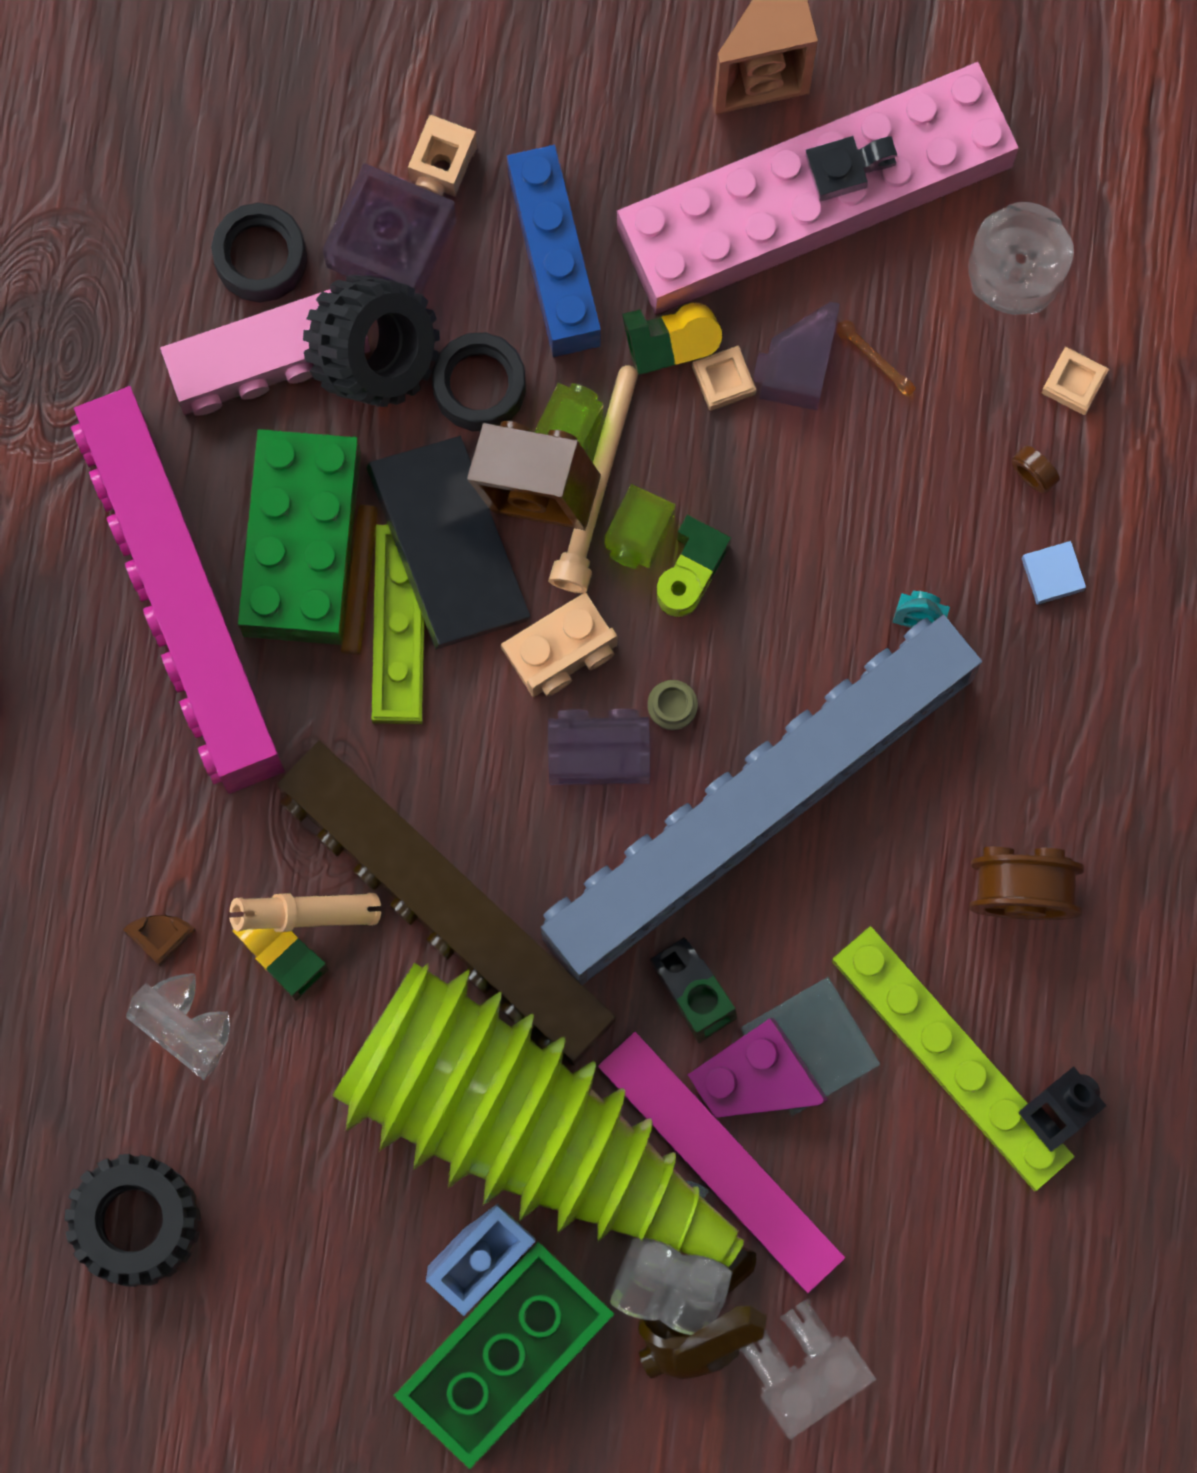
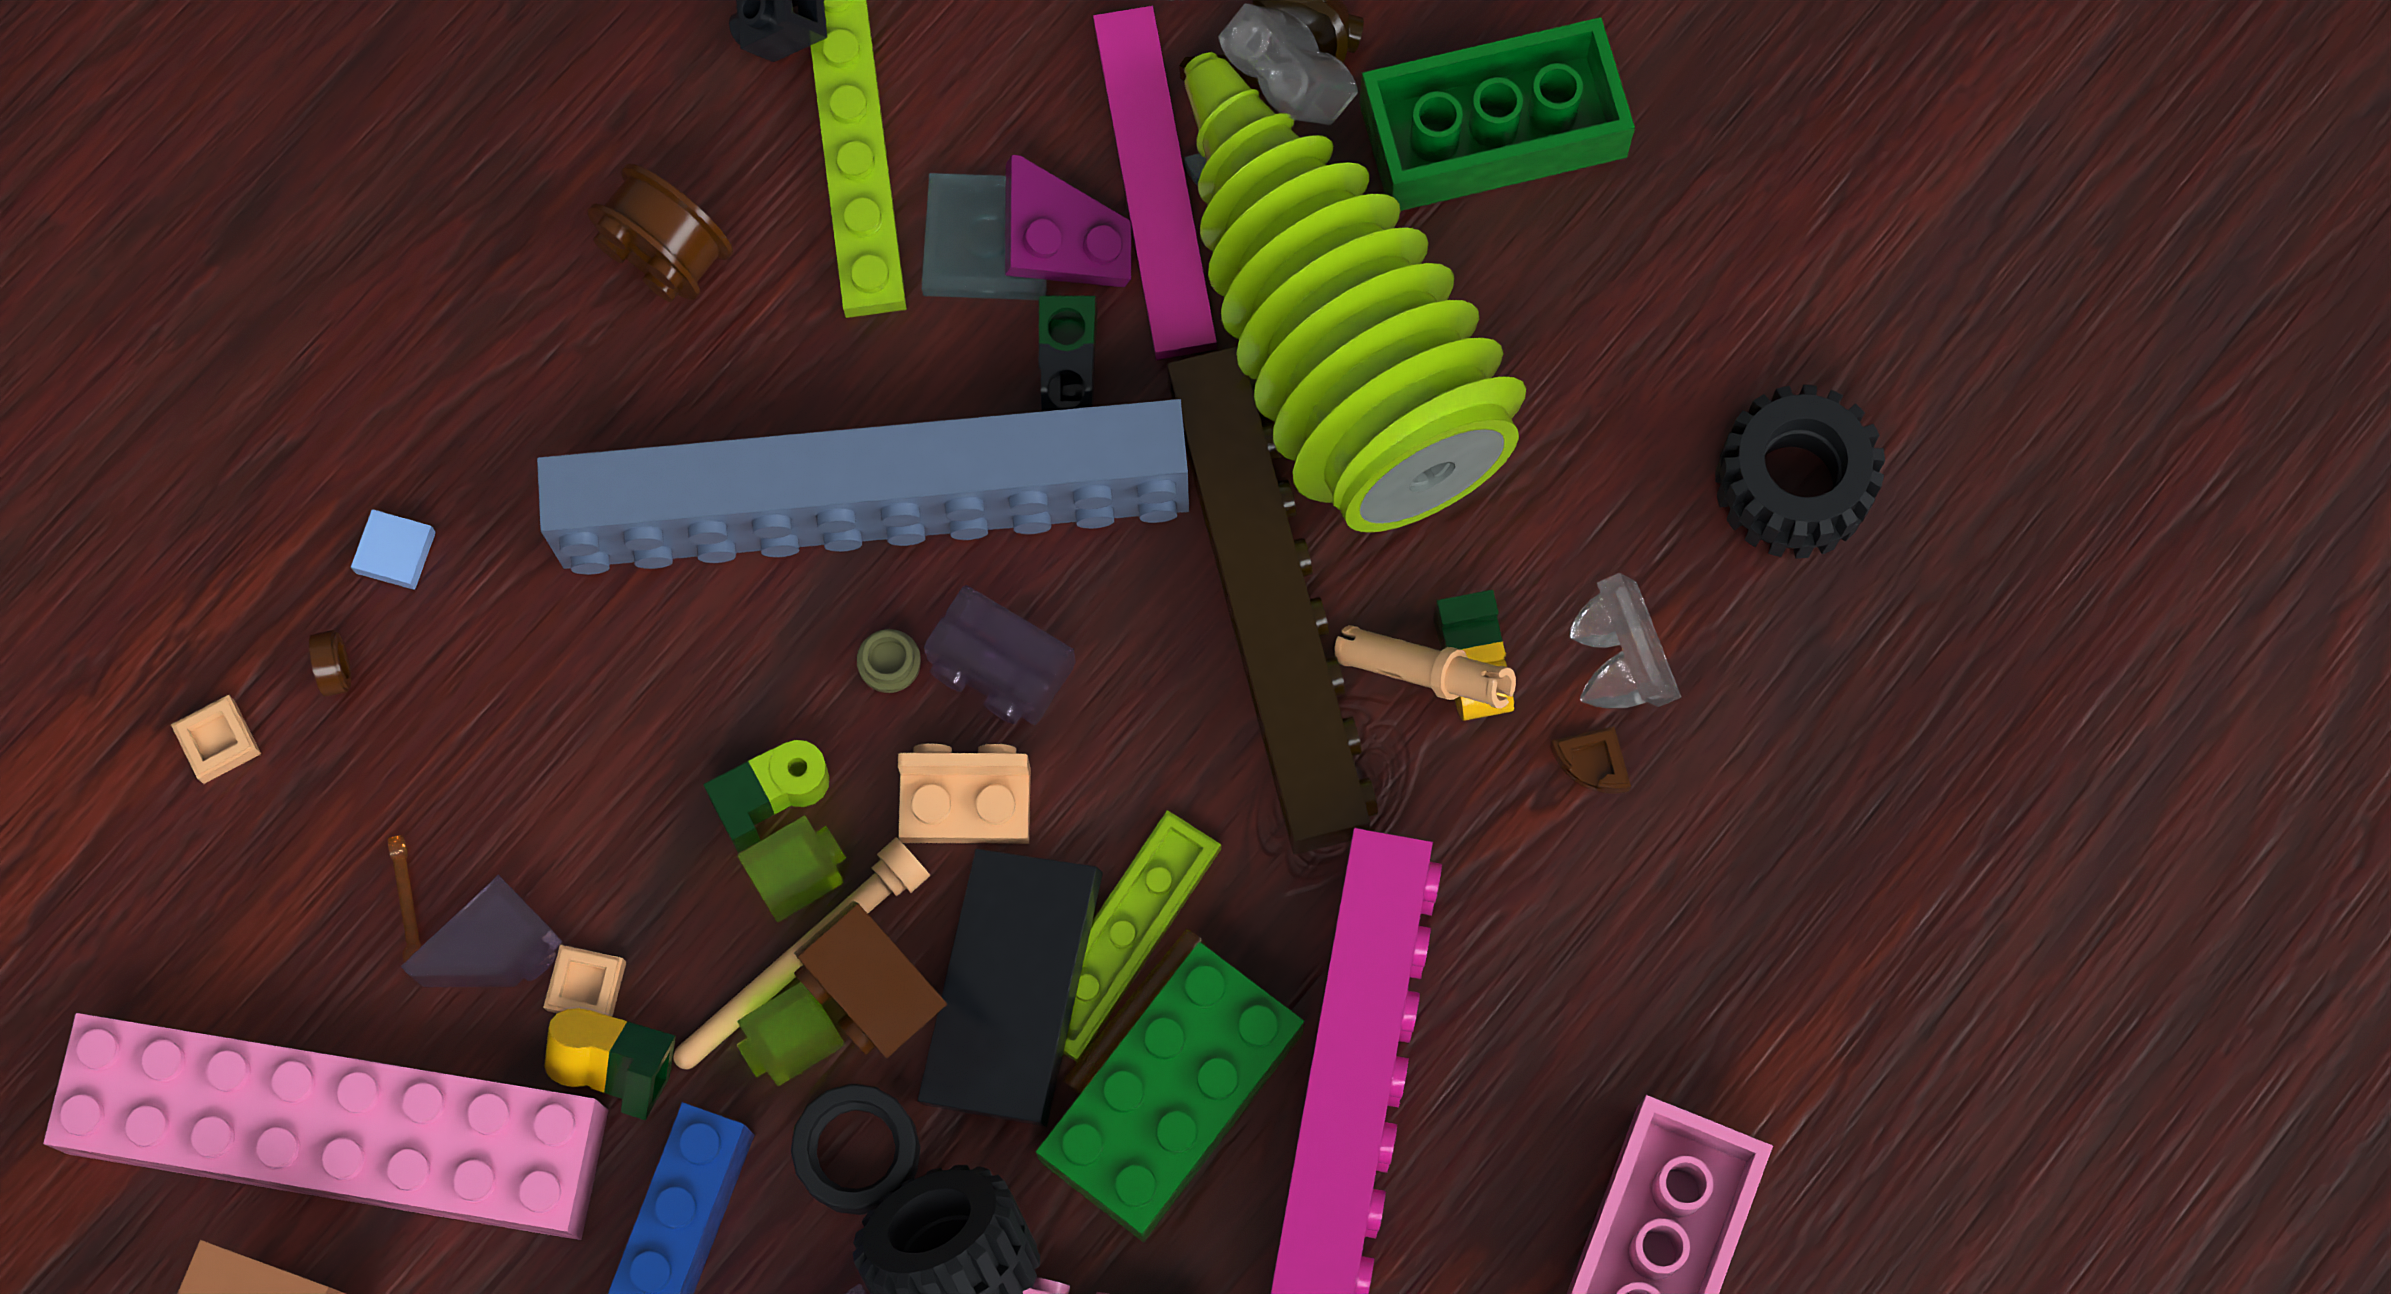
camera: 145 degrees left, 5 degrees down
(478, 1258) = (1469, 214): medium blue slope -> none
(841, 167) = (282, 1107): black plate -> none
(917, 607) = (559, 586): teal plate -> none
(1014, 286) = (135, 903): clear brick -> none

